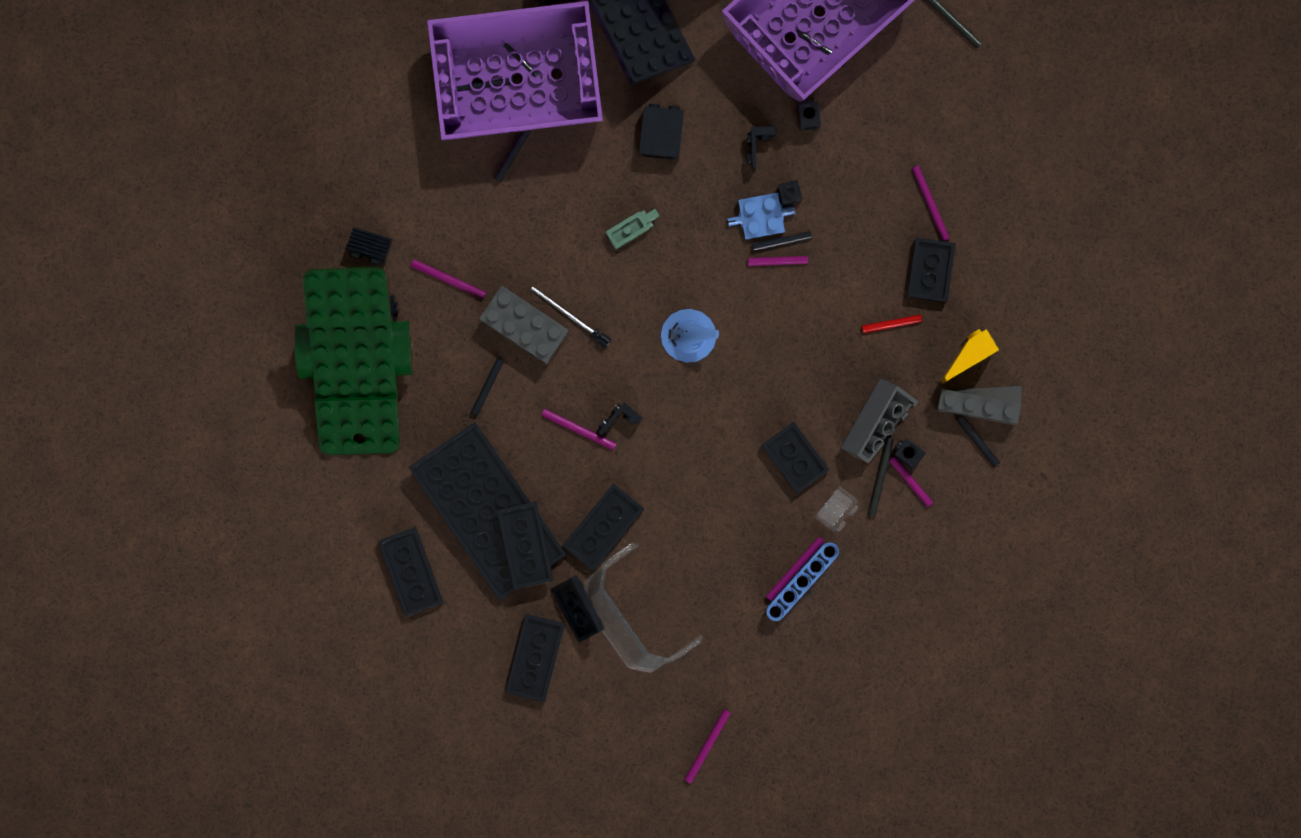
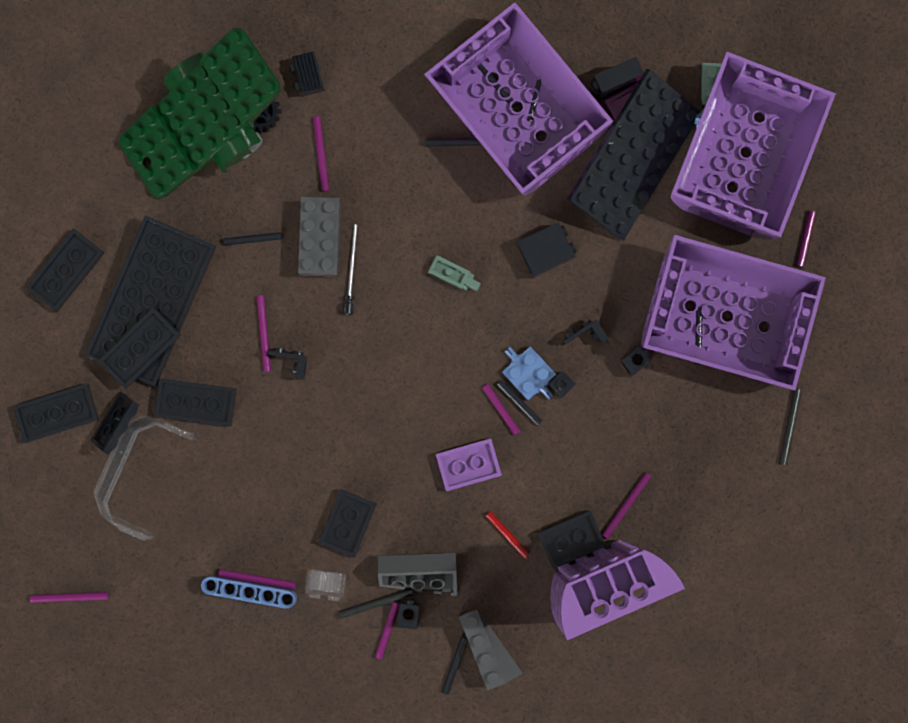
camera: 60 degrees right, 0 degrees up
(688, 335) = (395, 374): medium blue piece -> none
(809, 319) = (468, 464): none -> medium lavender plate
(977, 348) = (524, 616): yellow slope -> none
(980, 284) = (601, 579): none -> medium lavender slope

